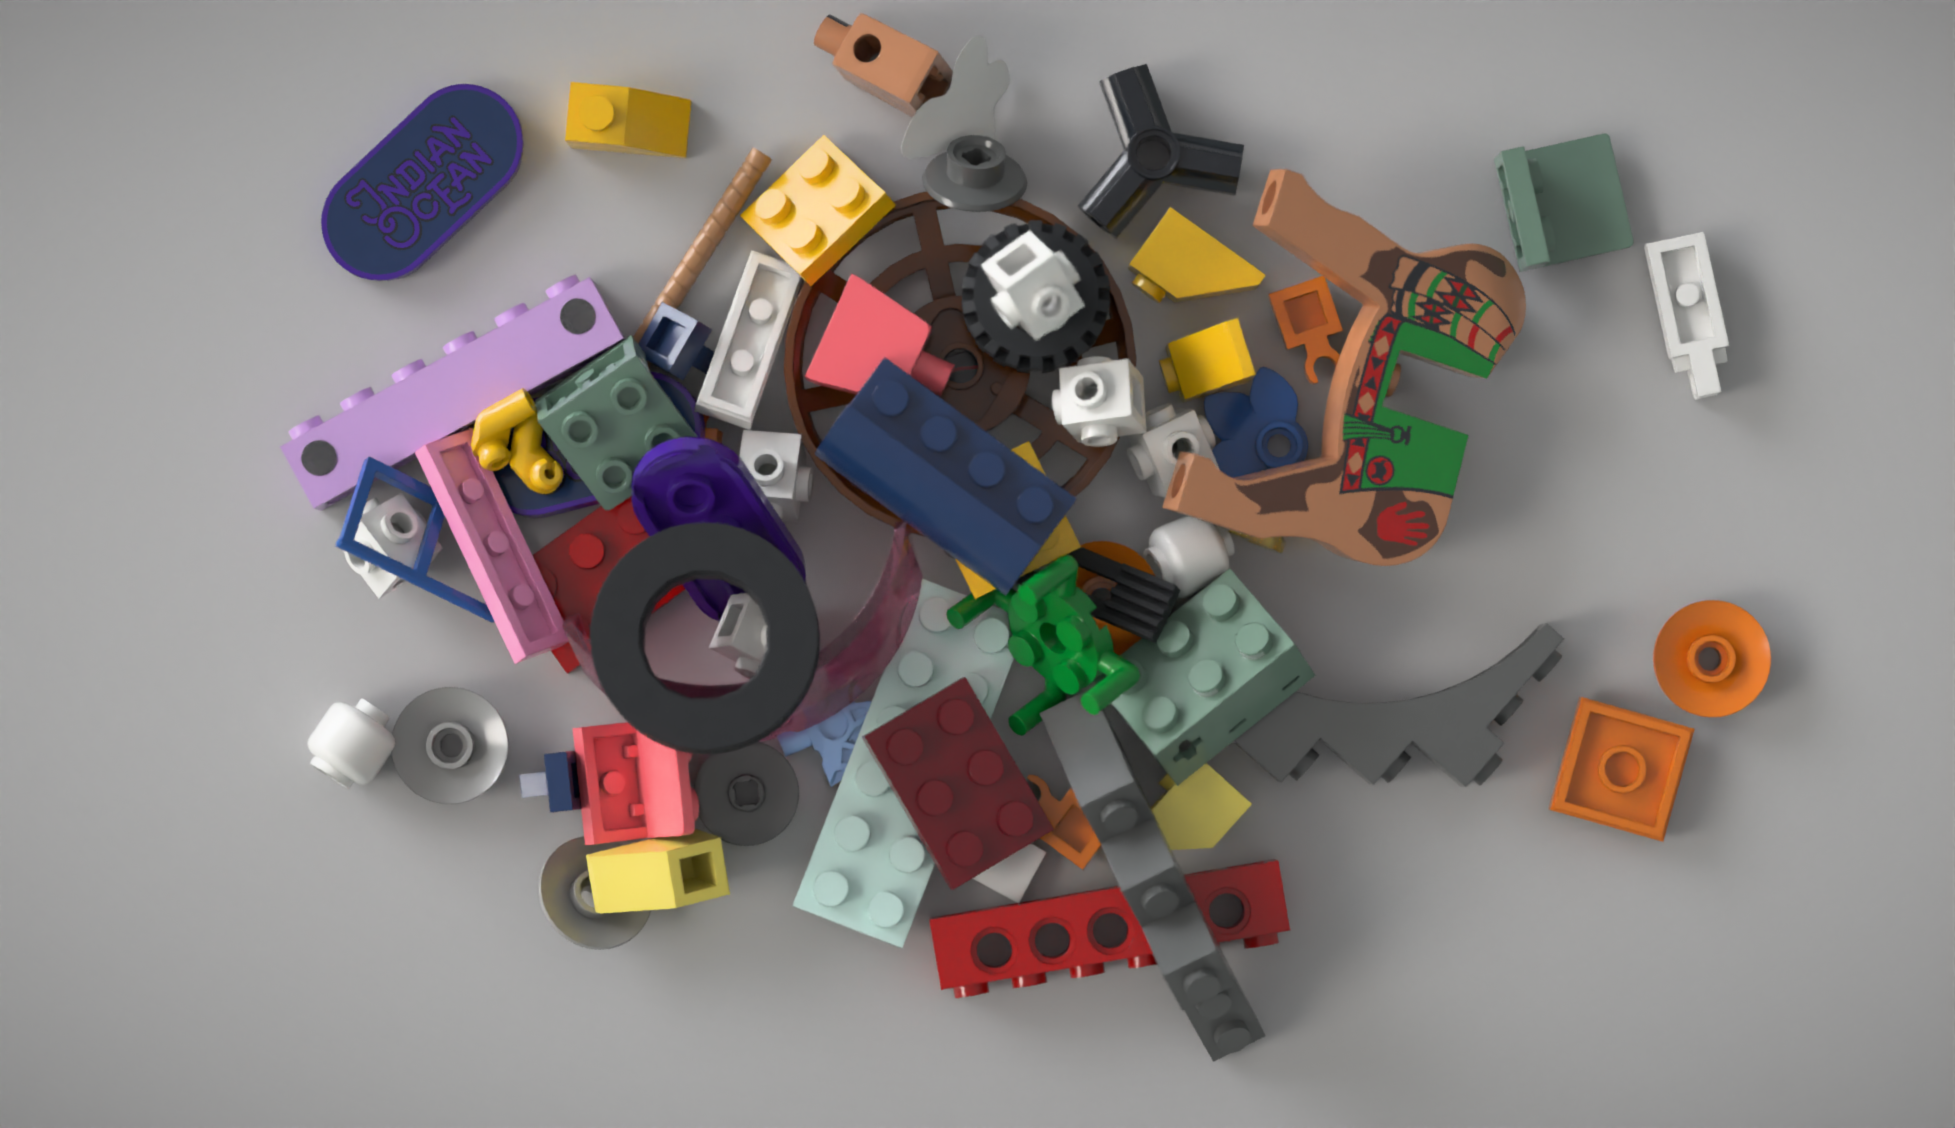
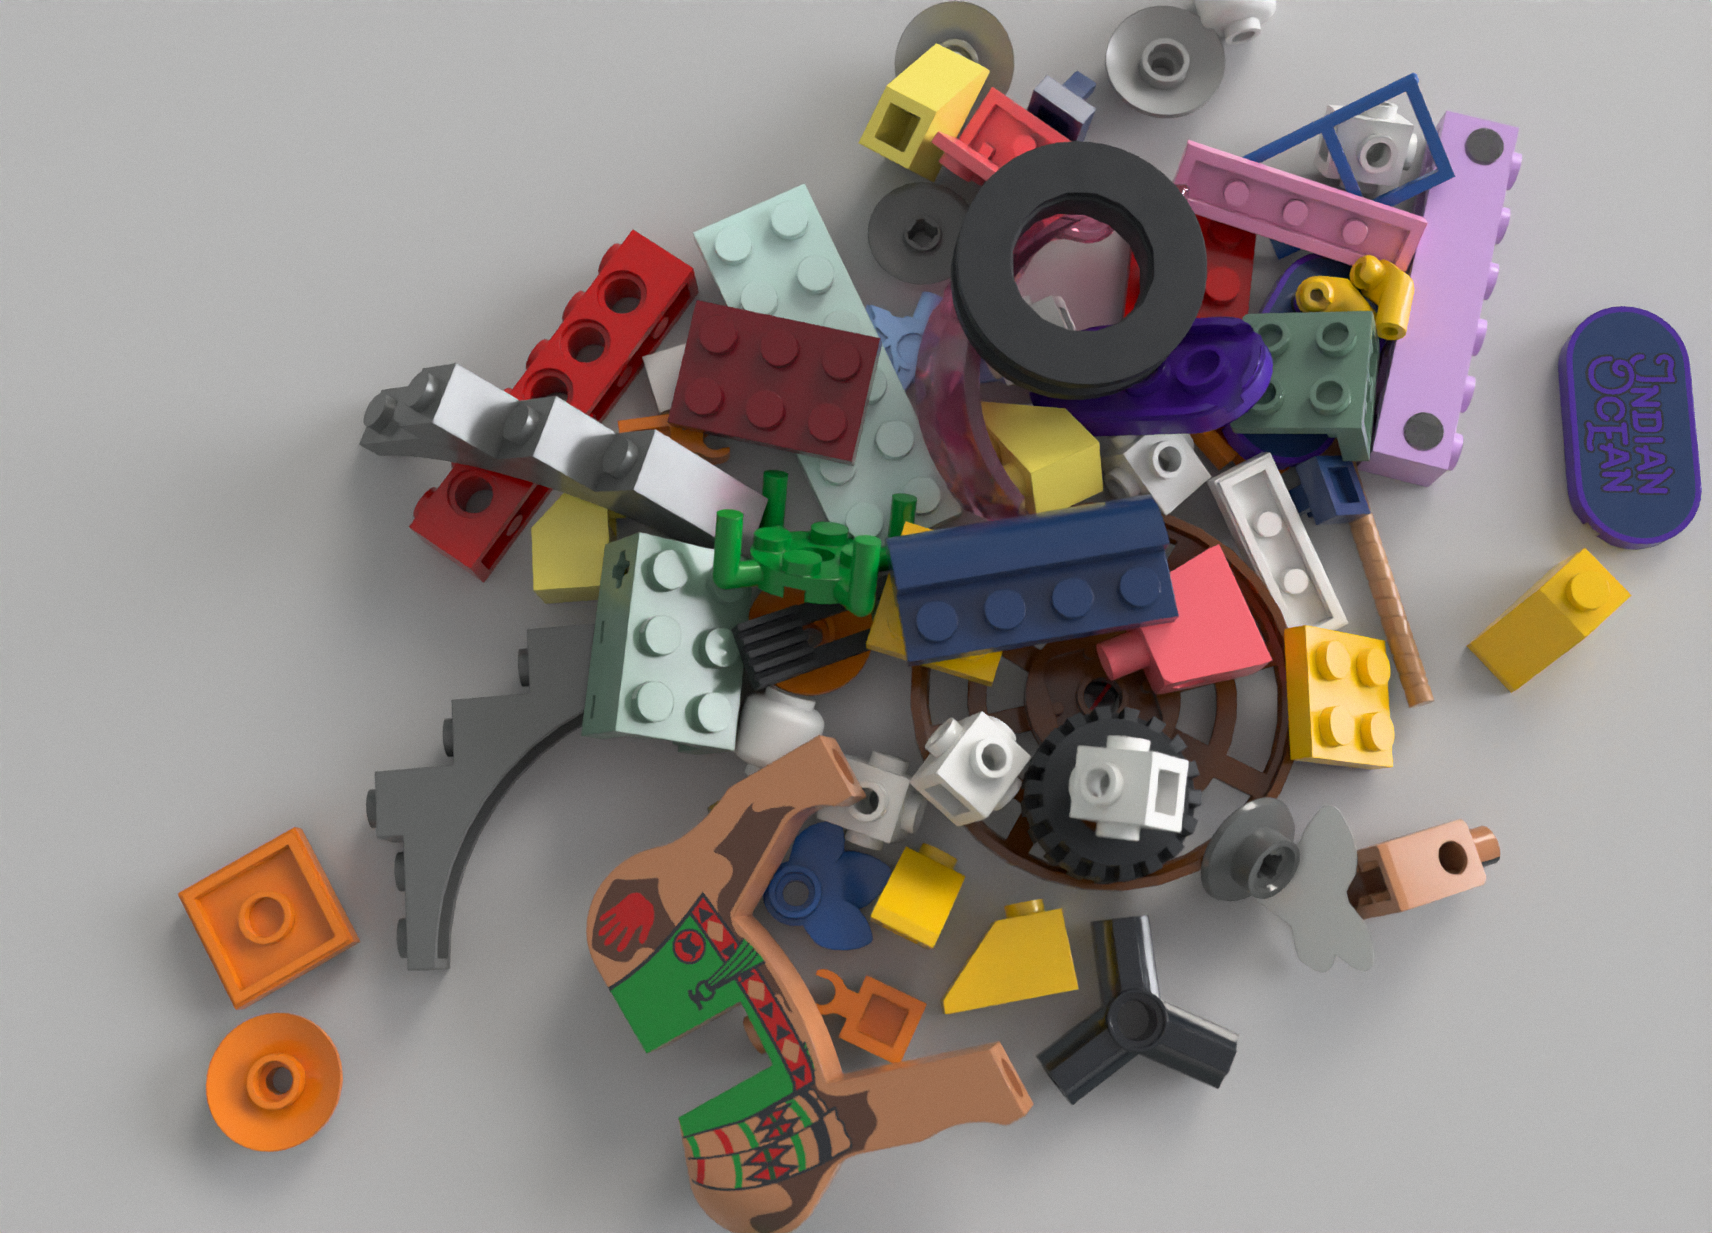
camera: 135 degrees right, 10 degrees down
(839, 556) = (1044, 454): none -> light yellow slope

